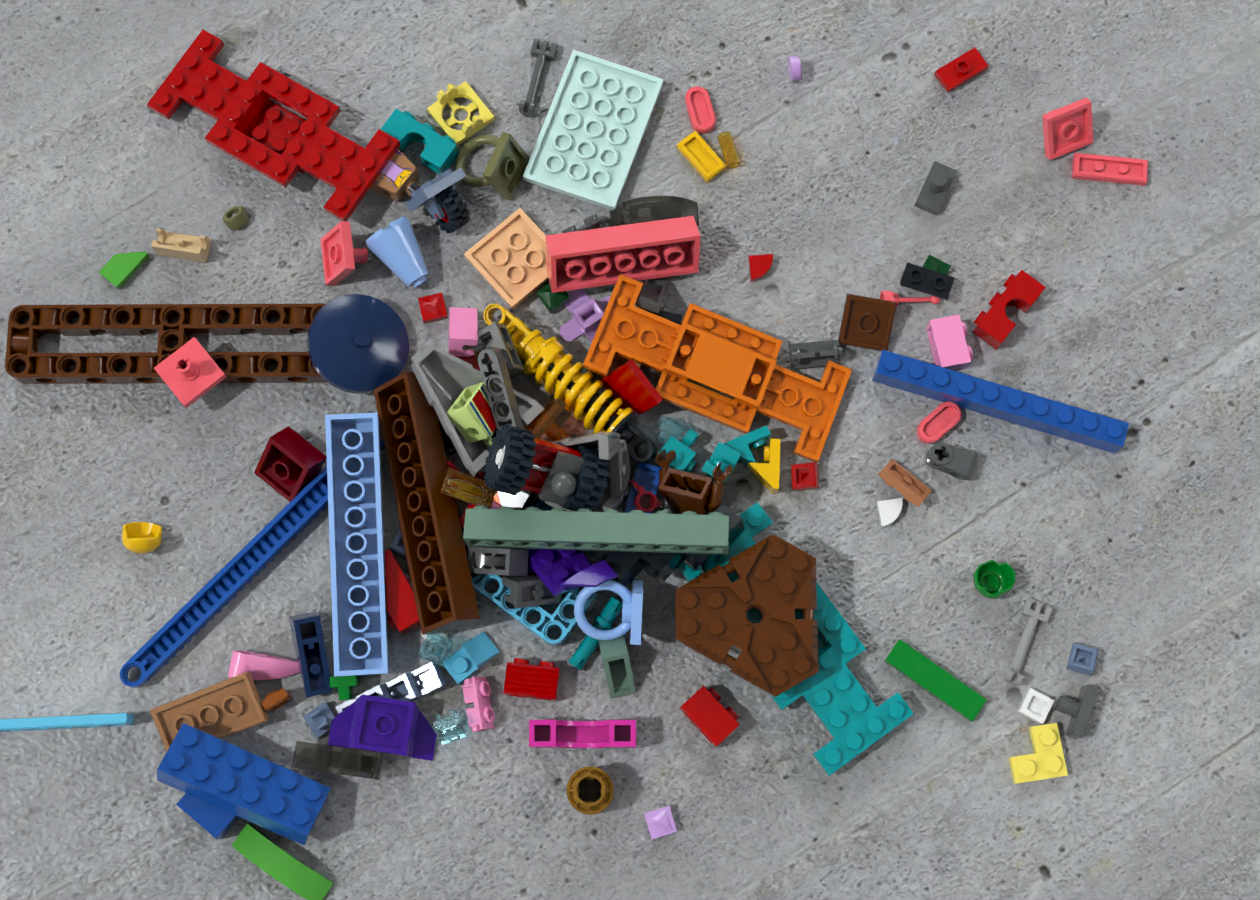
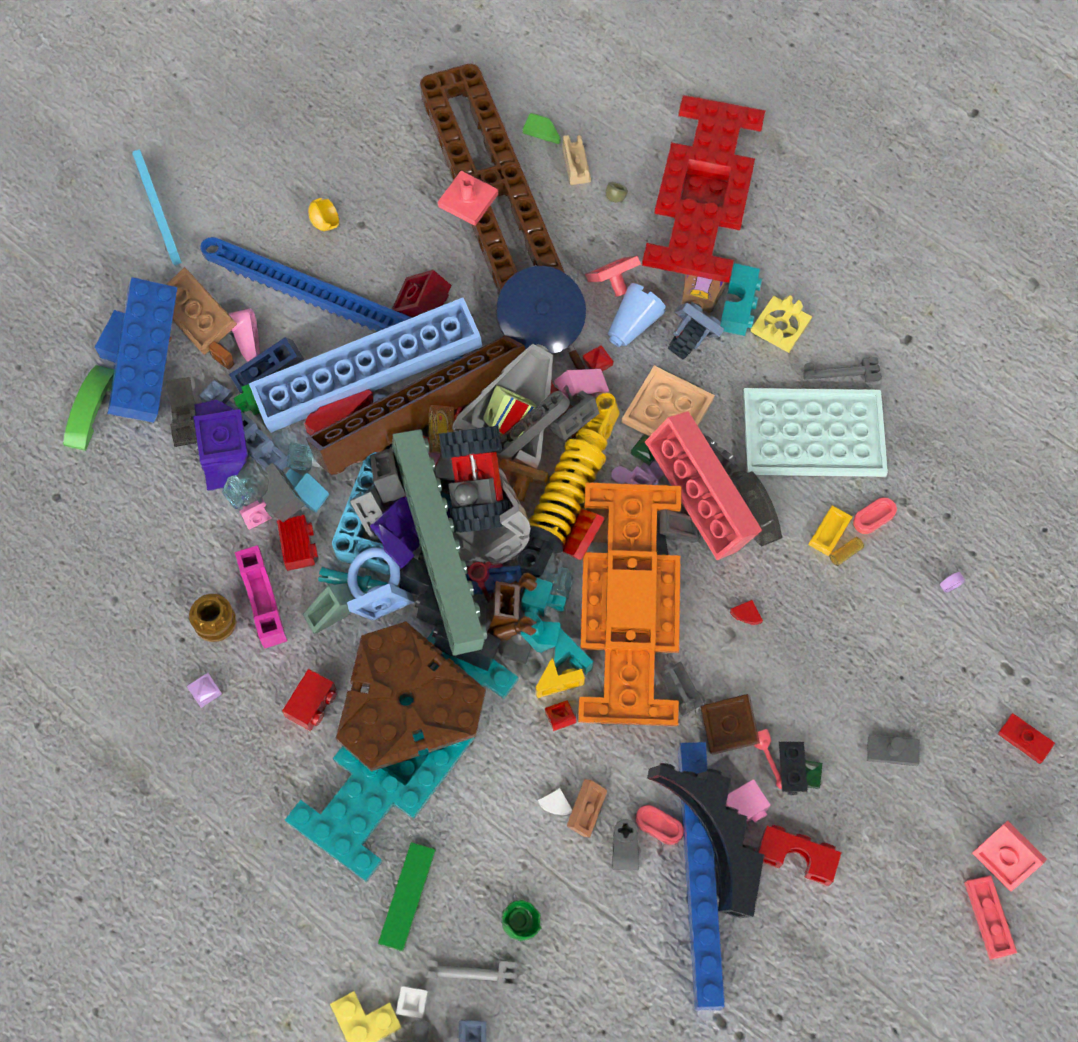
camera: 70 degrees right, 10 degrees down
(427, 329) = (576, 360): none -> reddish brown piece
(484, 677) = (281, 497): none -> dark grey arch
(503, 168) = (744, 366): olive tile -> none
(1005, 363) = (737, 863): none -> black arch

